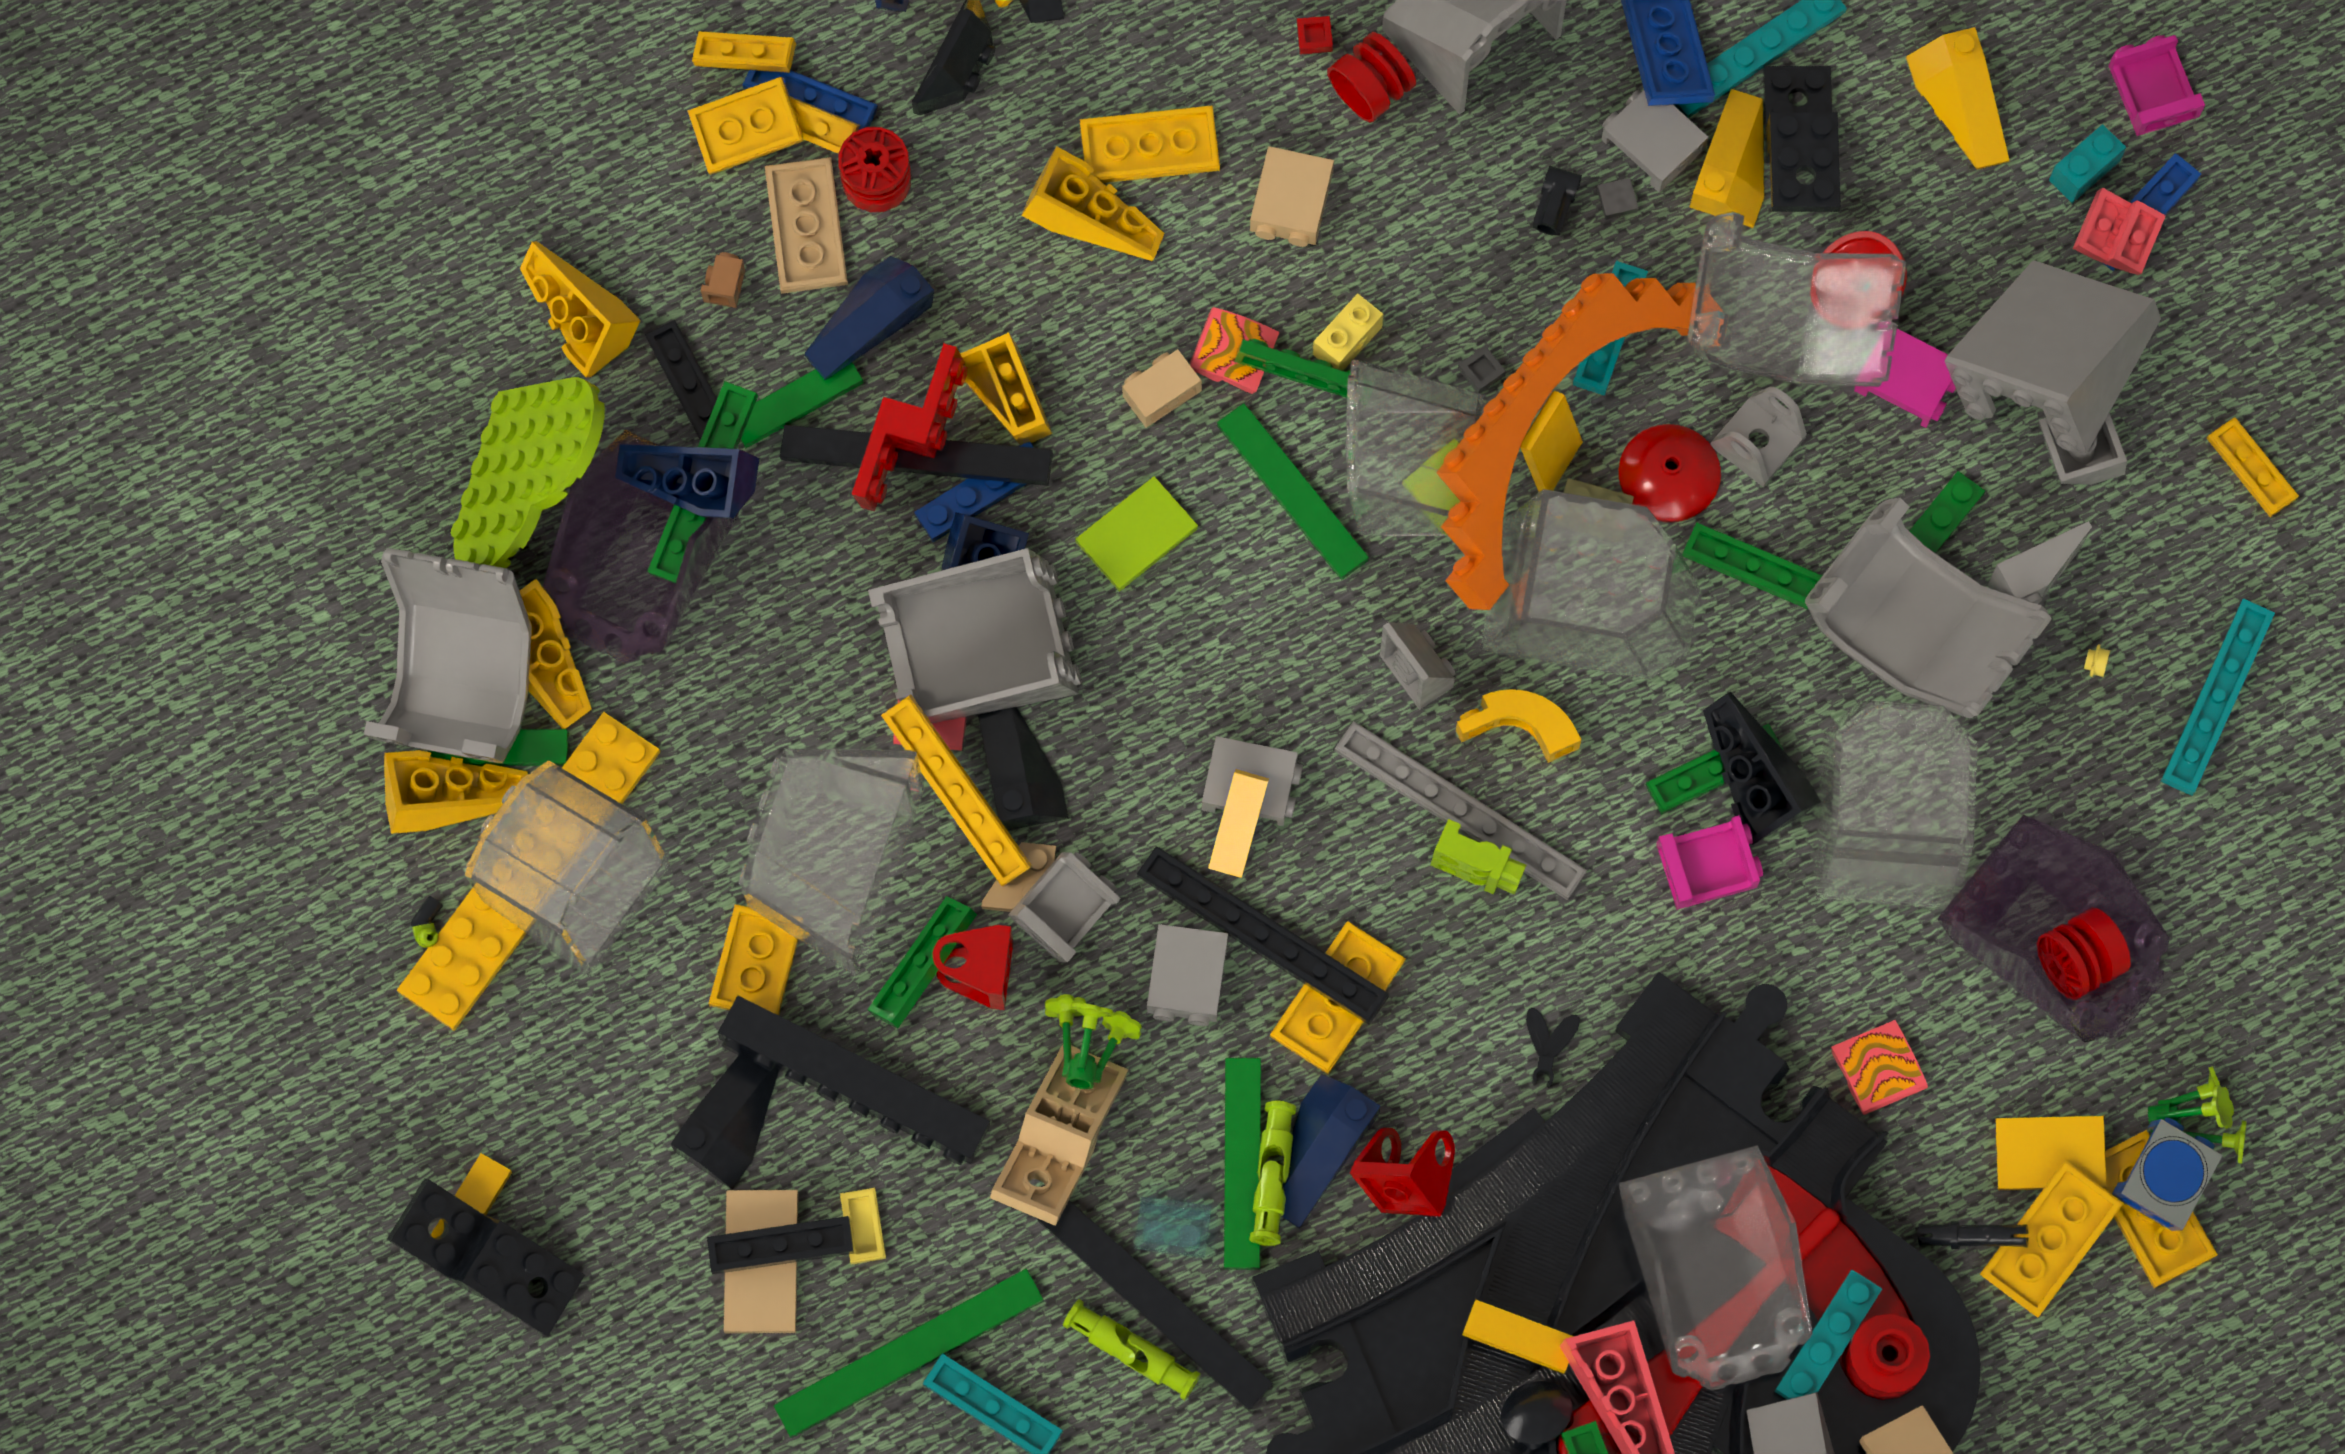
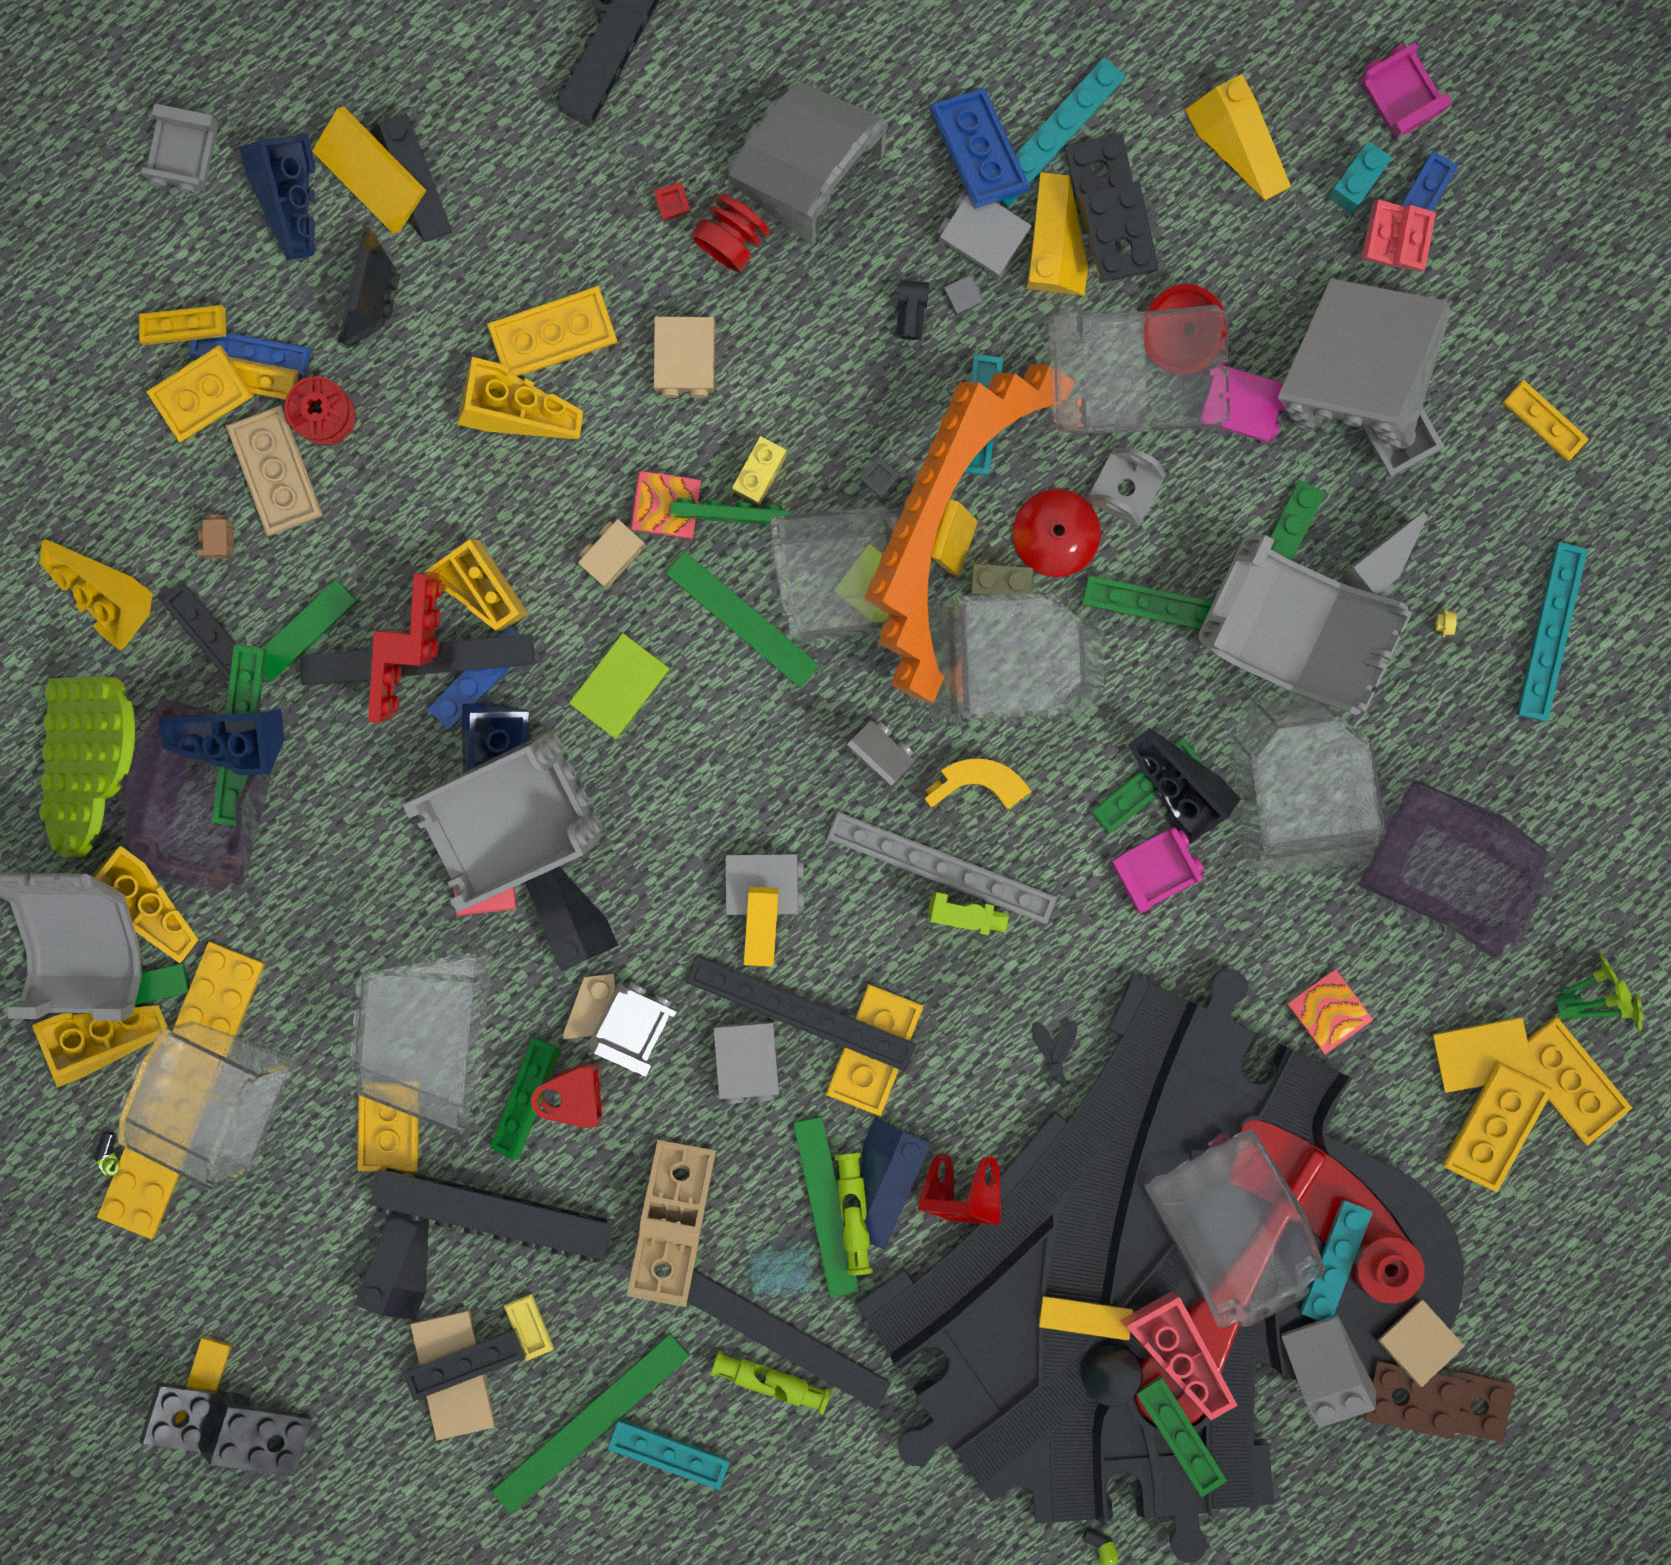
camera: 15 degrees left, 15 degrees up
(873, 311) = (351, 536): dark blue wedge -> none
(957, 791) = (518, 955): yellow tile -> none
(1082, 1070) = (677, 1169): plant -> none
(1972, 1235) = (1433, 1139): black pin -> none
(2083, 953) = (1484, 887): red wheel -> none
(2169, 1175) = (1588, 1058): panel -> none

